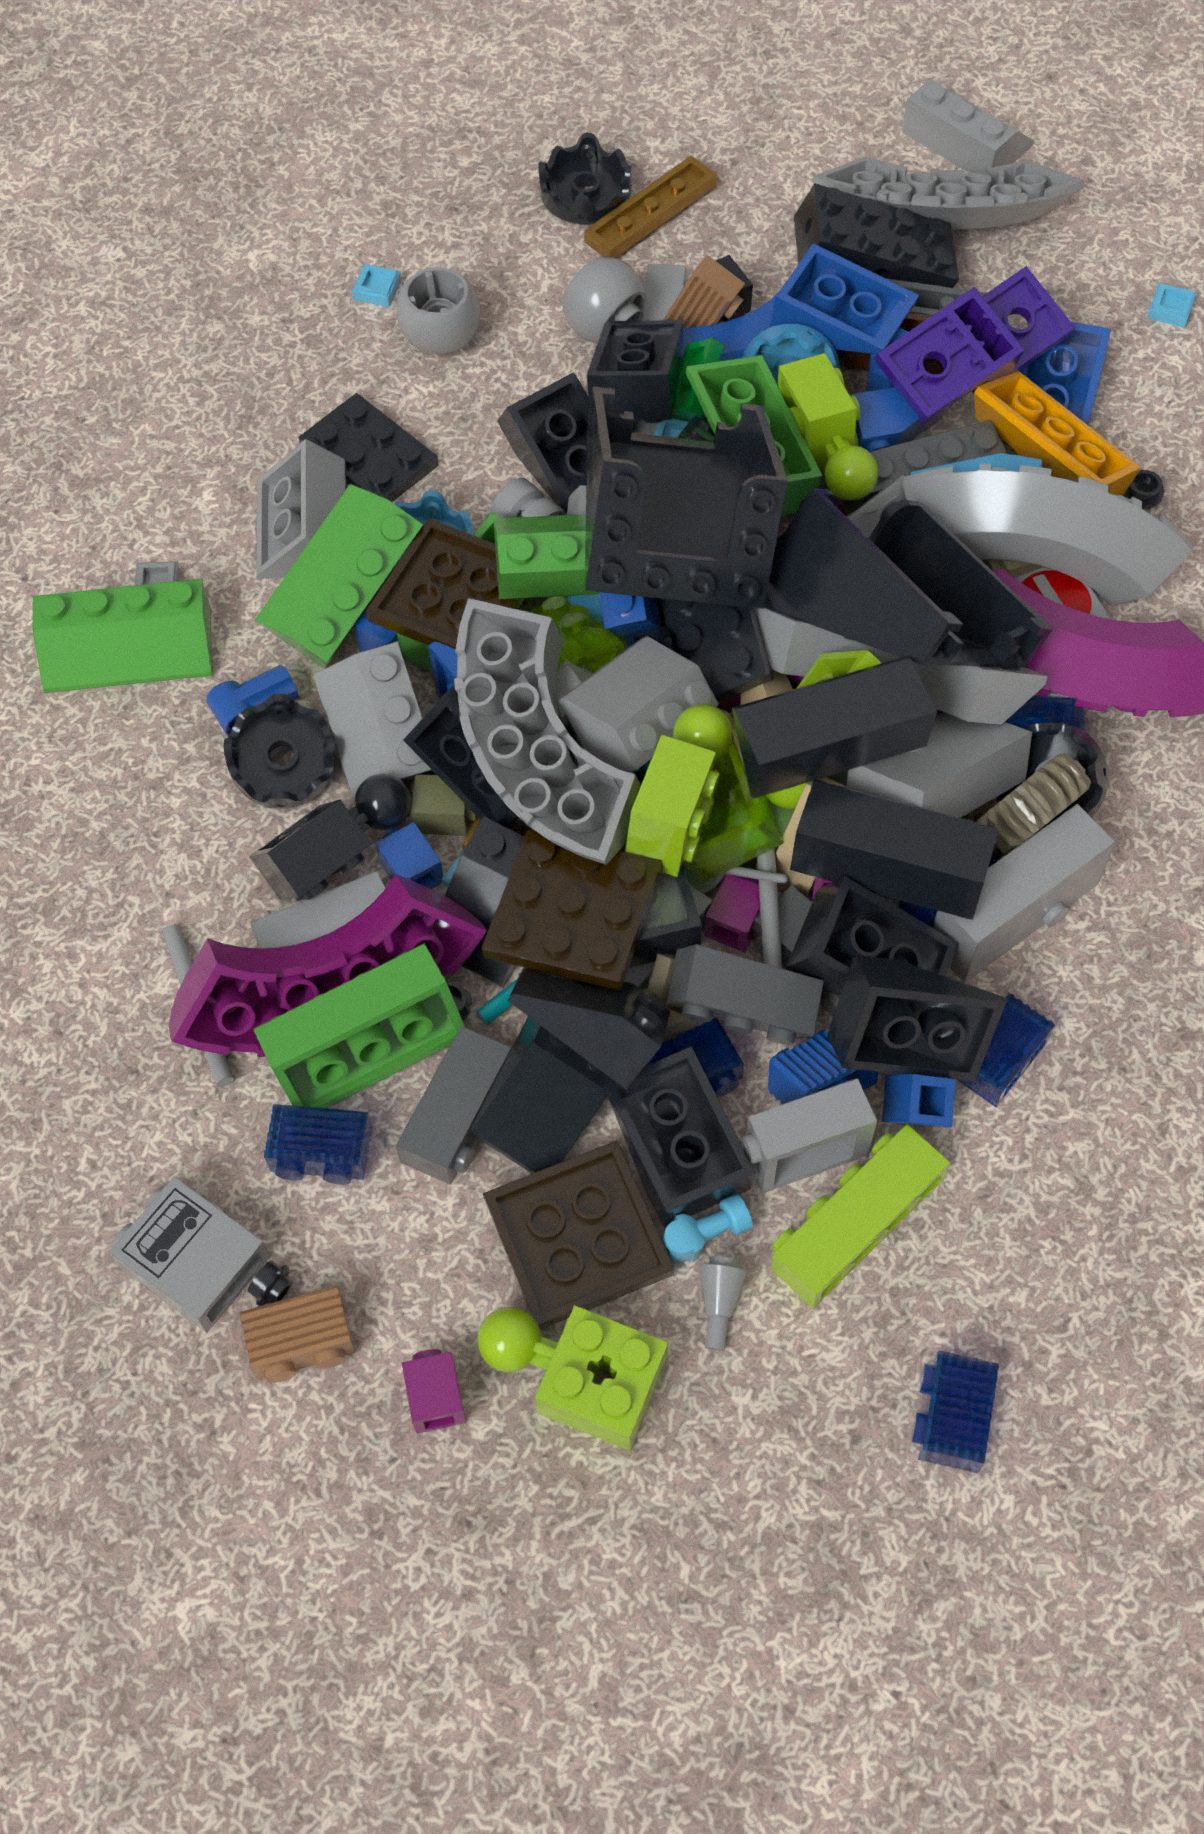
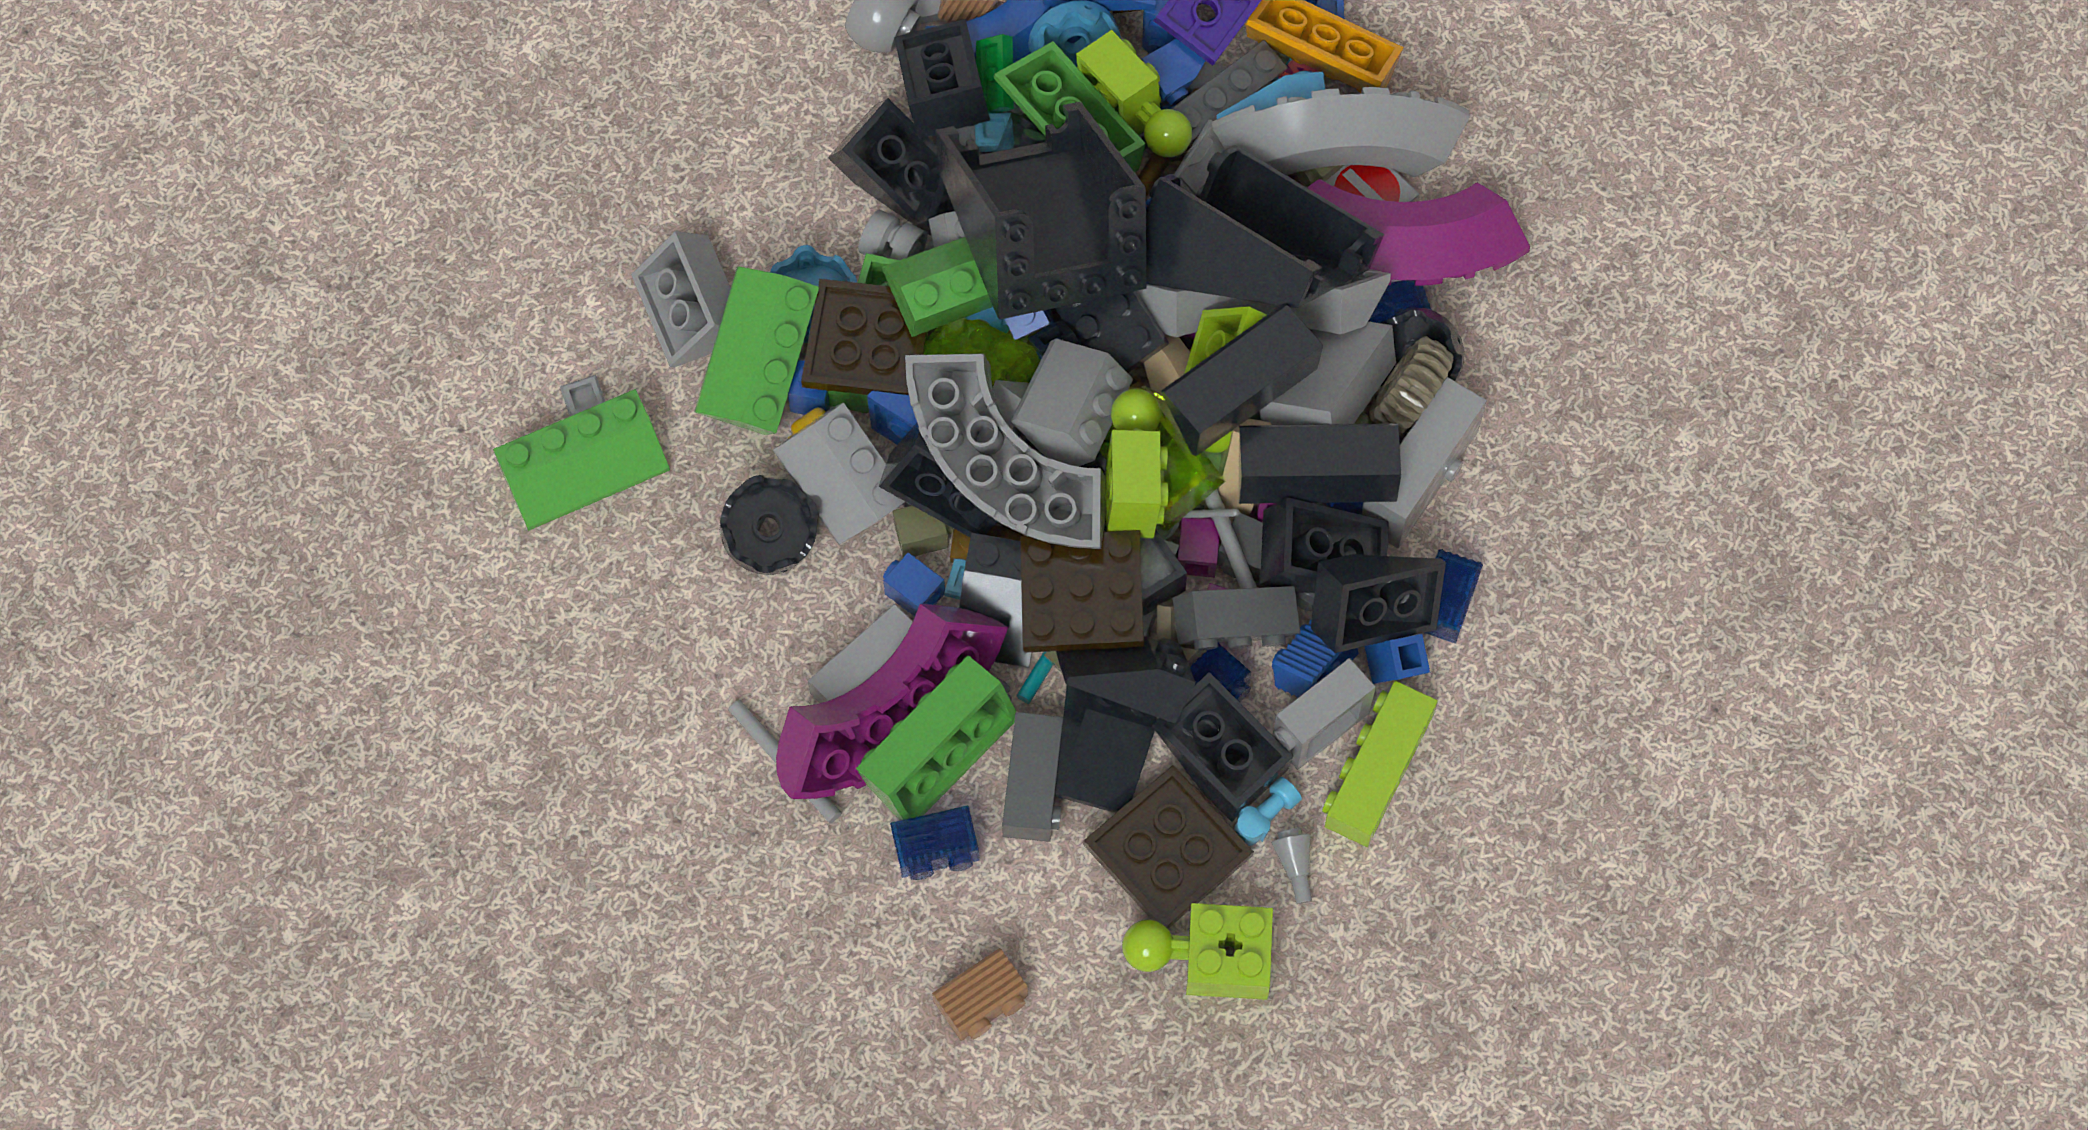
camera: 20 degrees left, 5 degrees up
(189, 1253) = (868, 961): light grey brick -> none
(231, 698) = (711, 489): blue piece -> none
(270, 1283) = (942, 965): black plate -> none
(331, 838) = (843, 590): black brick -> none
(375, 448) = (731, 215): black plate -> none
(376, 285) = (658, 48): medium azure tile -> none
(433, 1391) = (1103, 1003): magenta brick -> none
(438, 310) = (737, 51): light grey wheel -> none
(956, 1412) = (1502, 889): clear blue brick -> none
(1151, 485) = (1417, 56): black plate -> none

